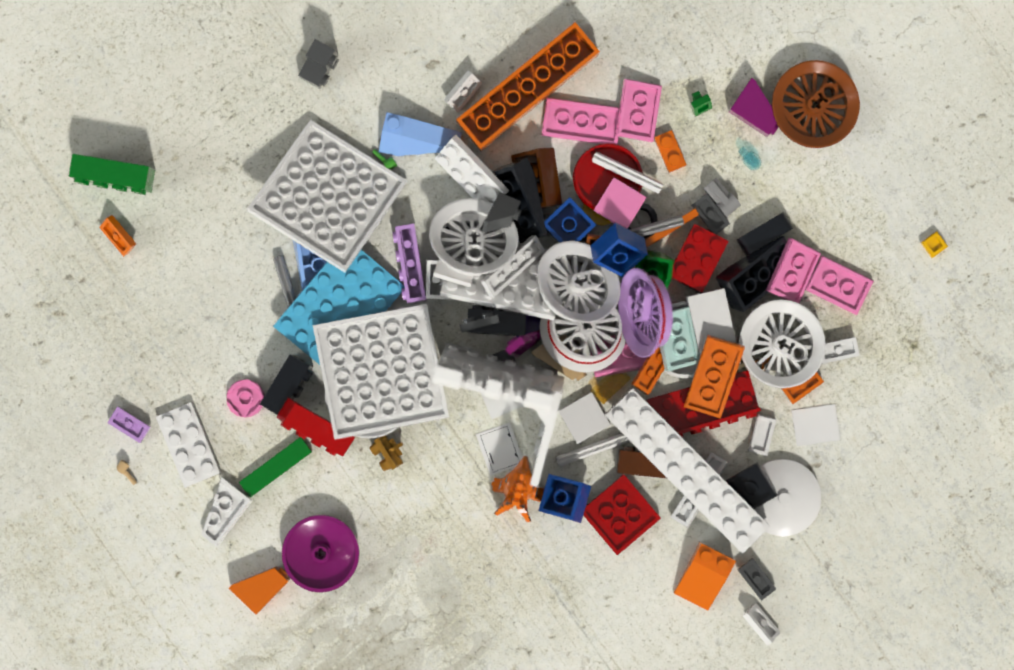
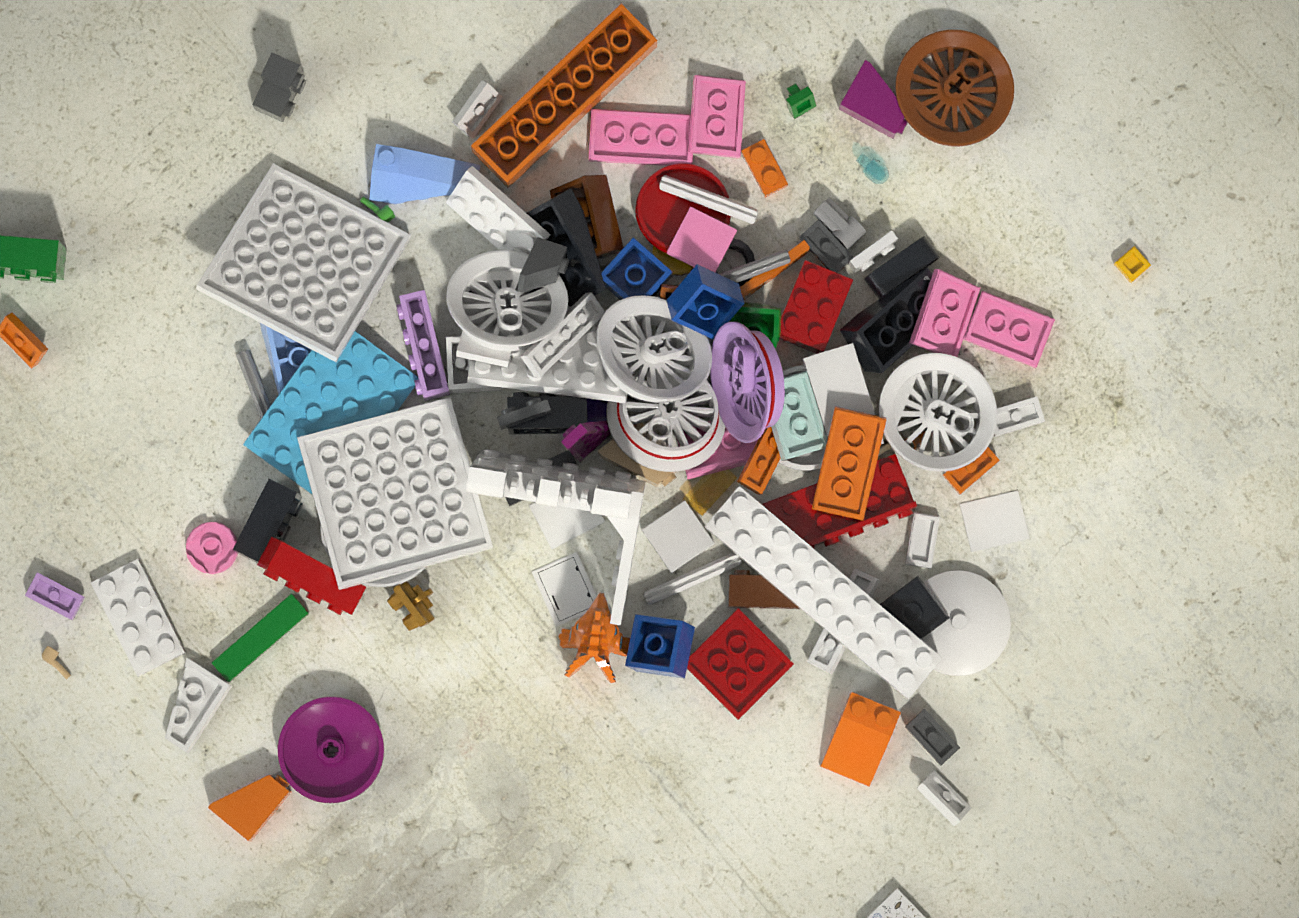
camera: 15 degrees left, 5 degrees down
(751, 217) = (865, 259): none -> white plate

